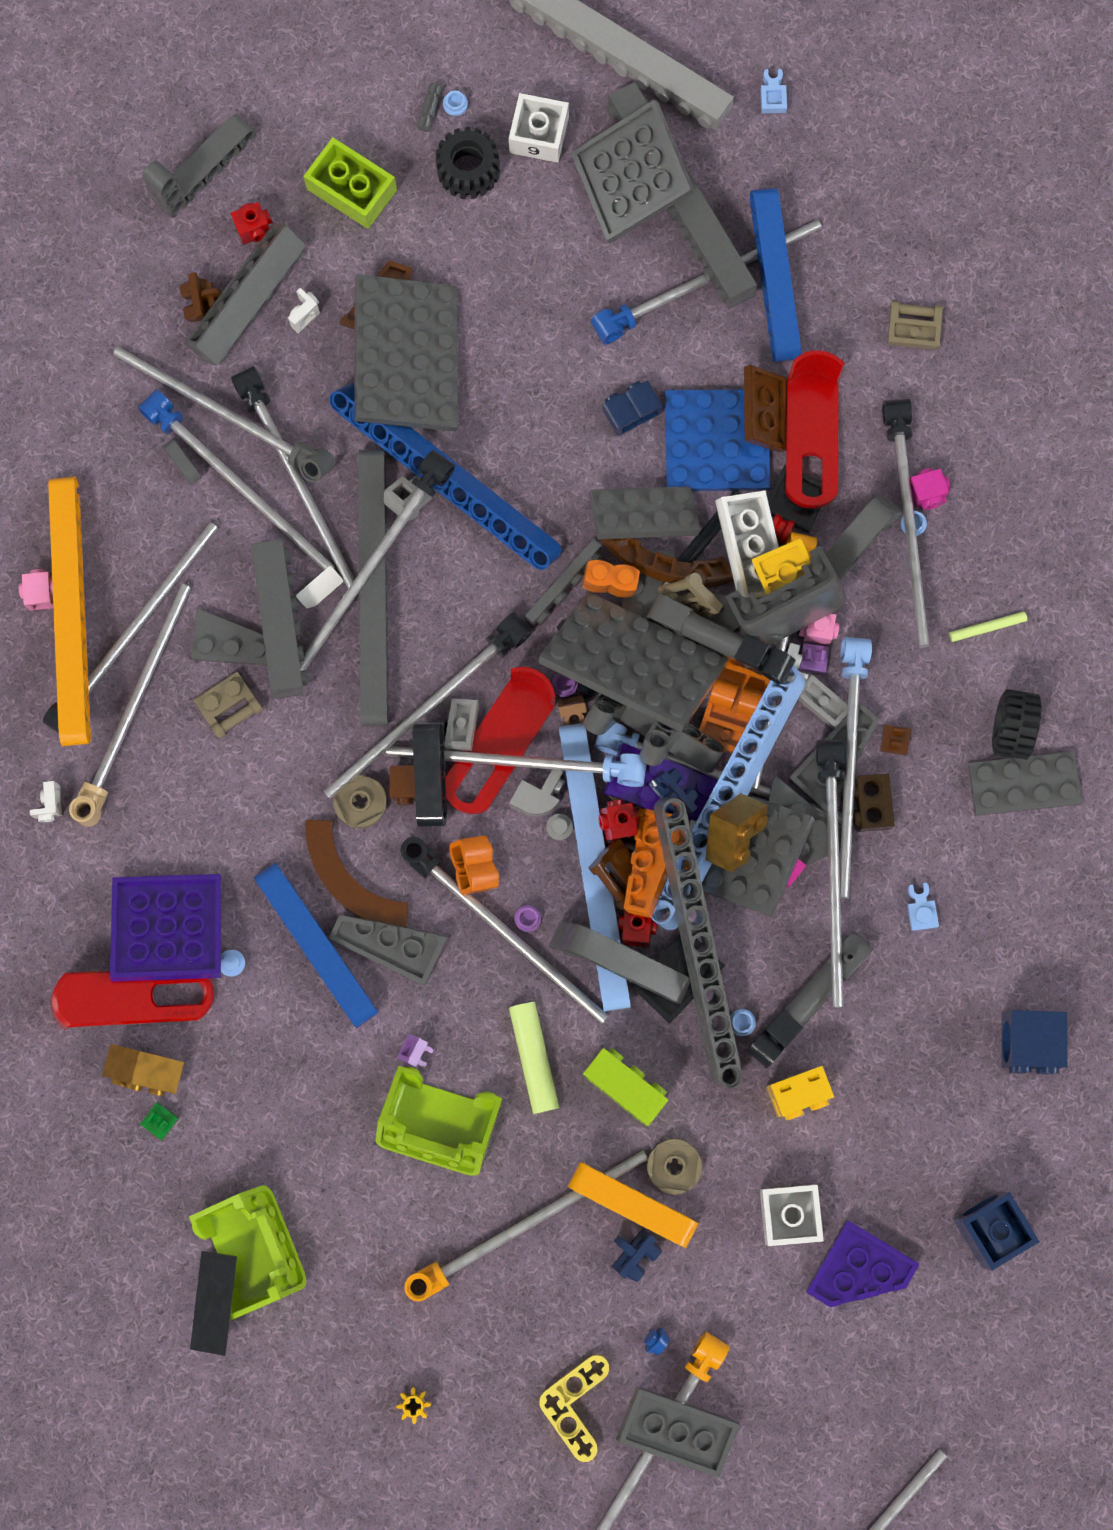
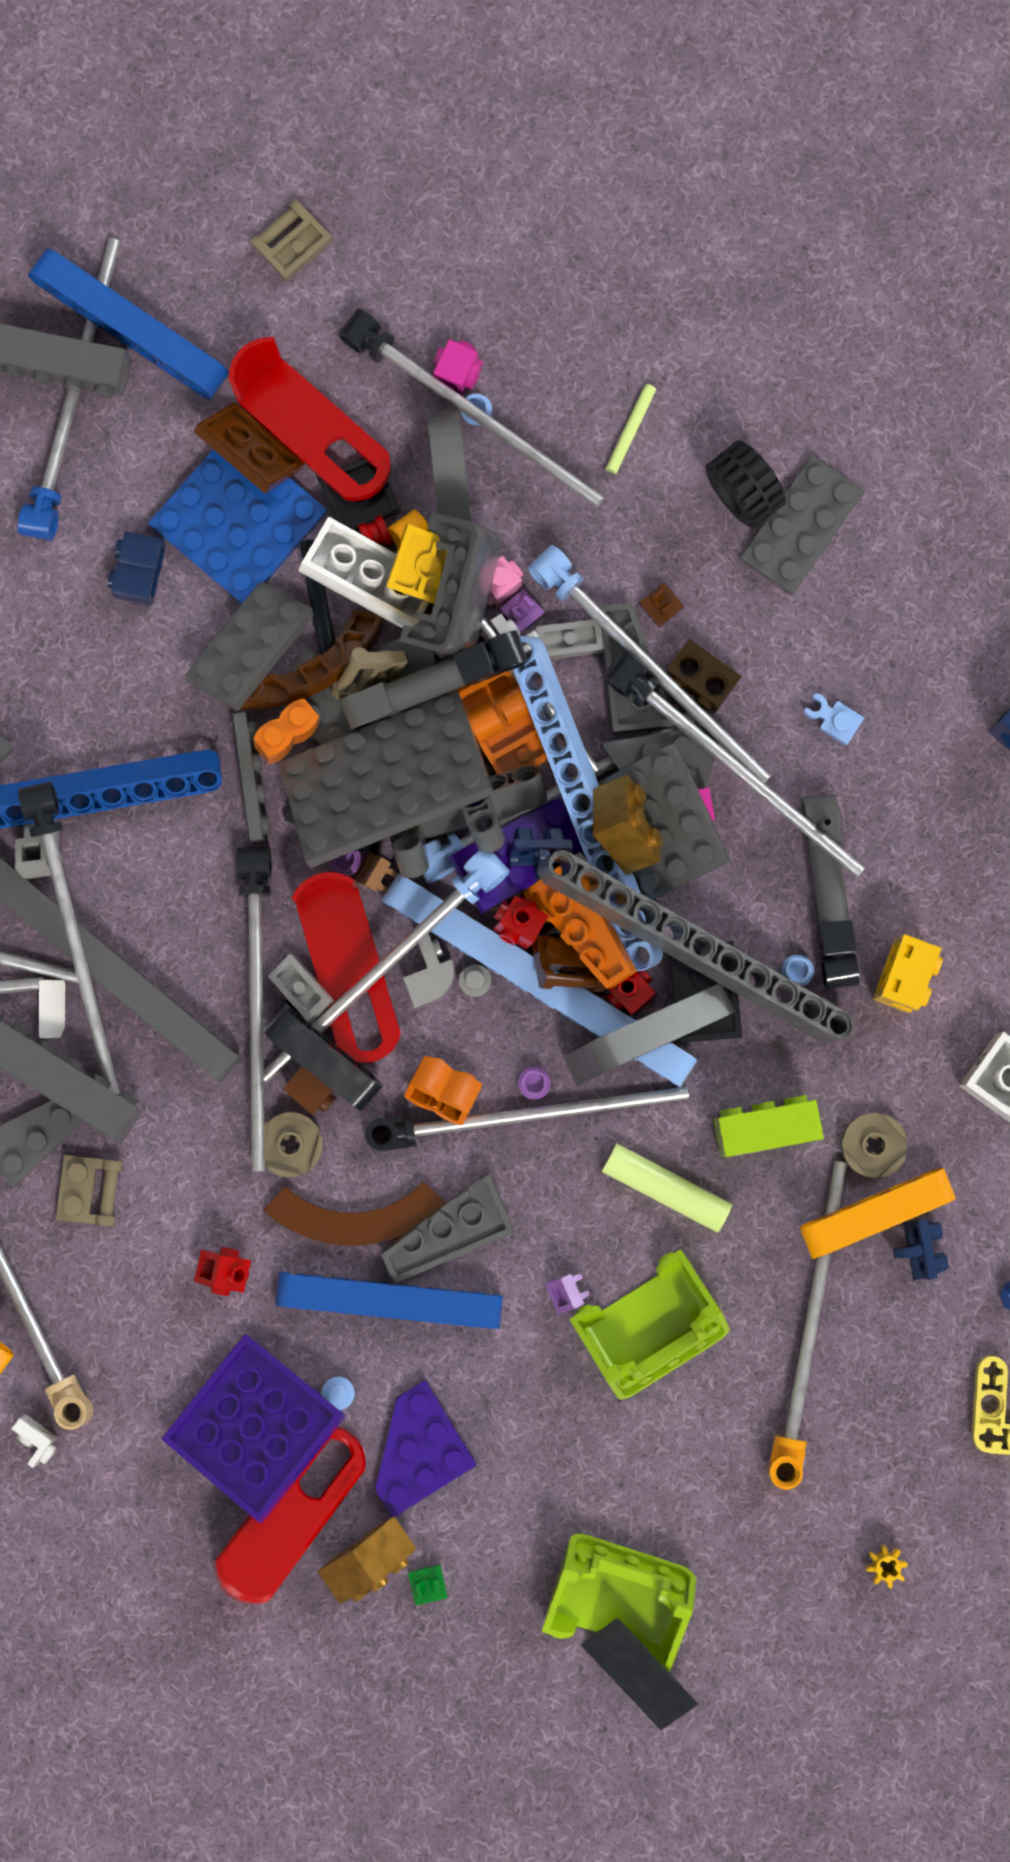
camera: 50 degrees left, 5 degrees up
(238, 1045) = (420, 1451): none -> dark purple plate
(247, 826) = (222, 1271): none -> red brick

